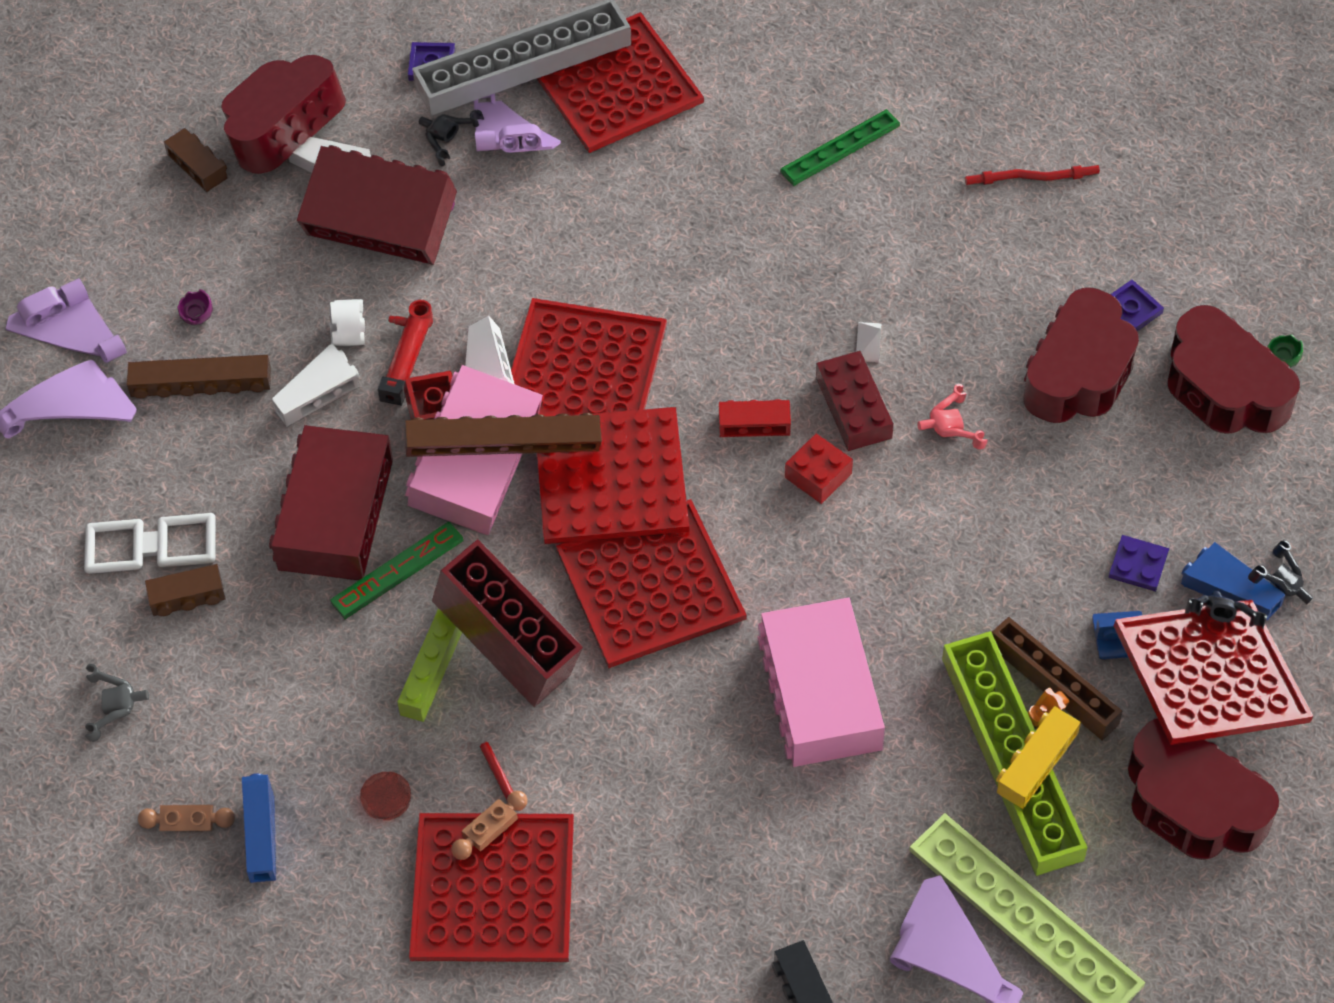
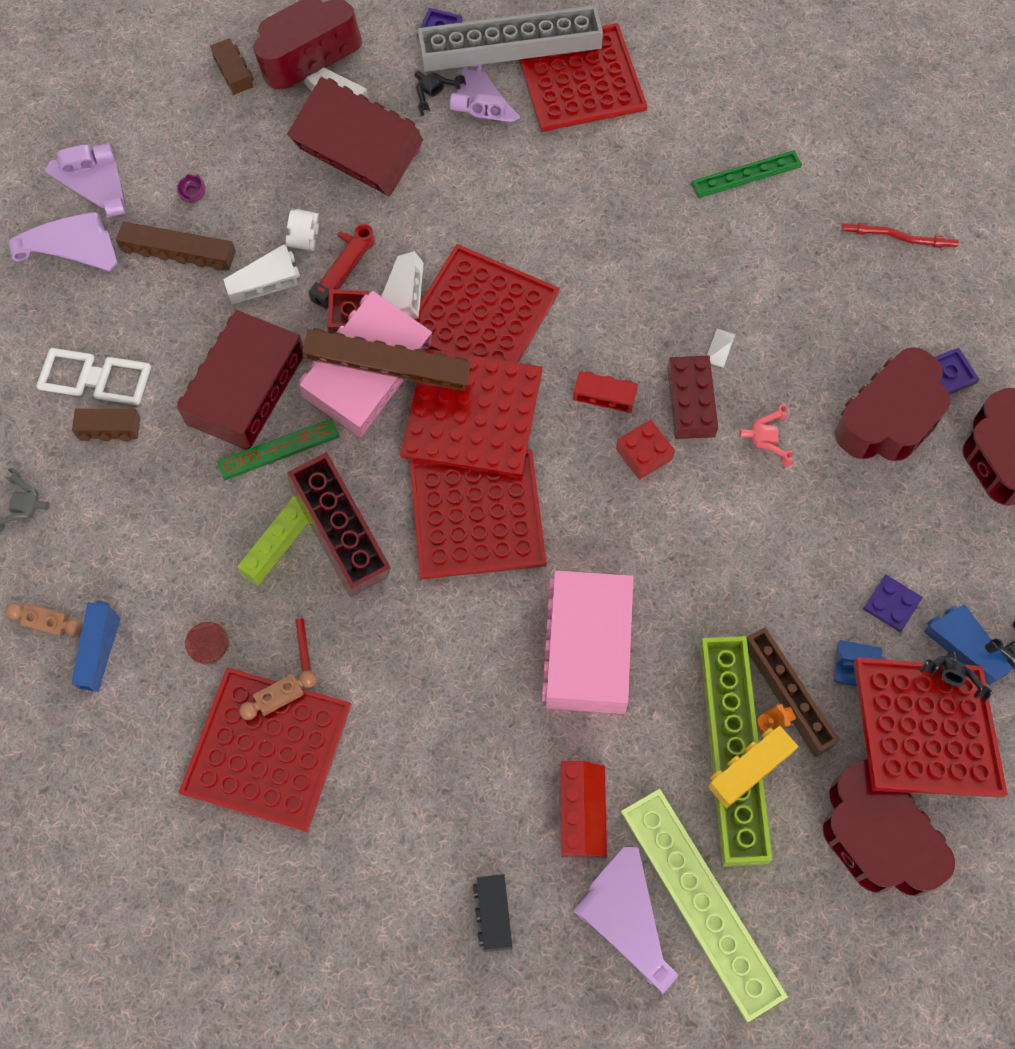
camera: 15 degrees right, 10 degrees up
(866, 856) = (583, 809): none -> red slope

